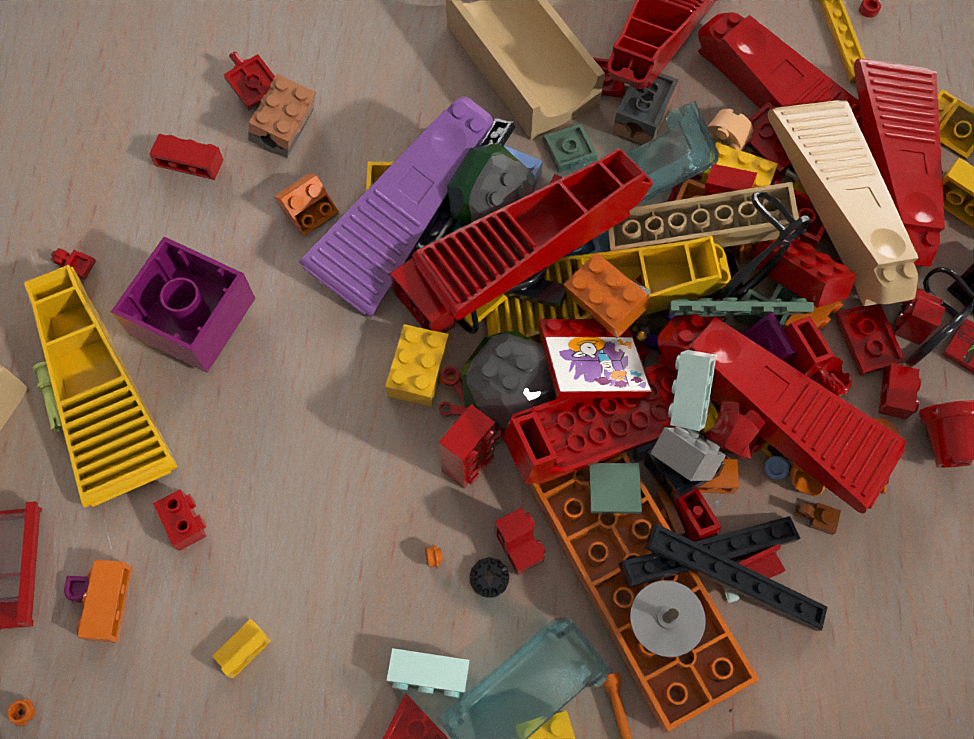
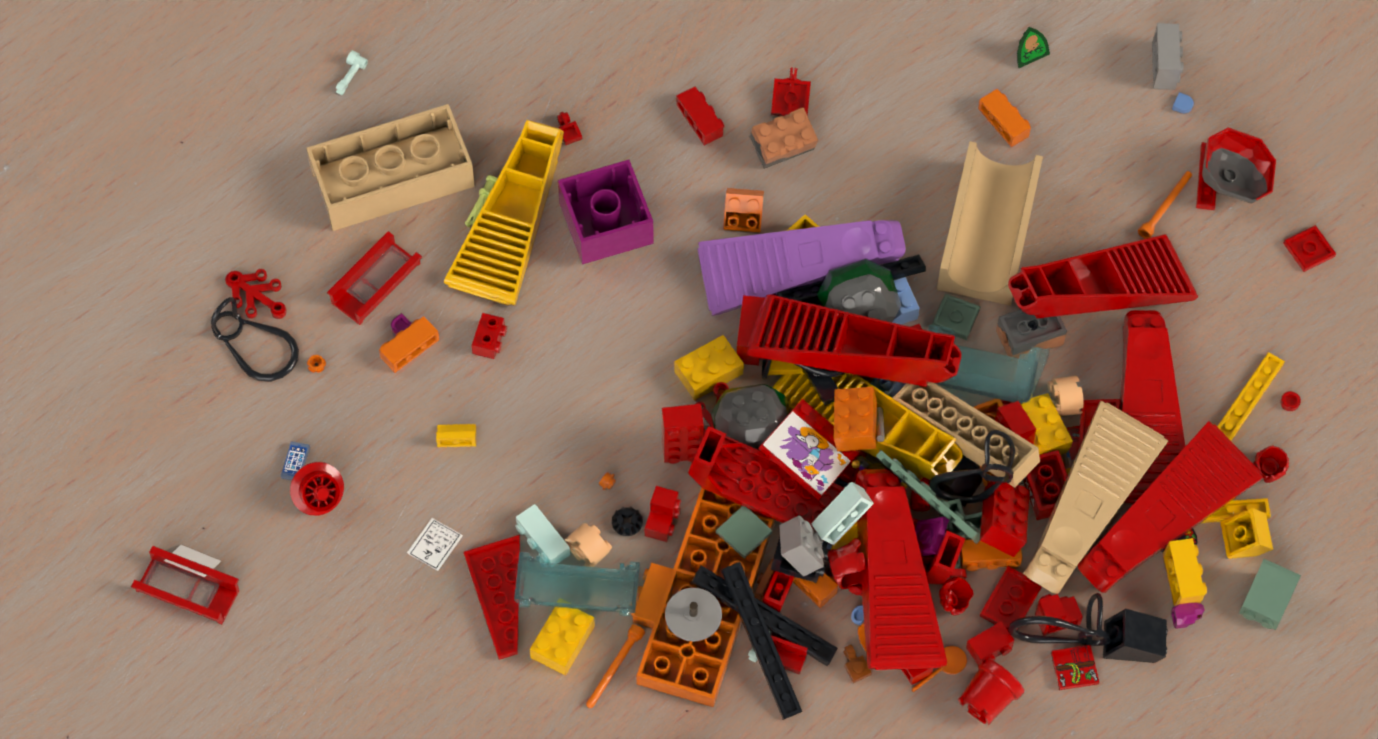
camera: 45 degrees right, 5 degrees down
(484, 639) = (588, 545): none -> light nougat brick
(586, 615) = (651, 594): none -> orange brick
(920, 54) = (1272, 463): none -> red hair

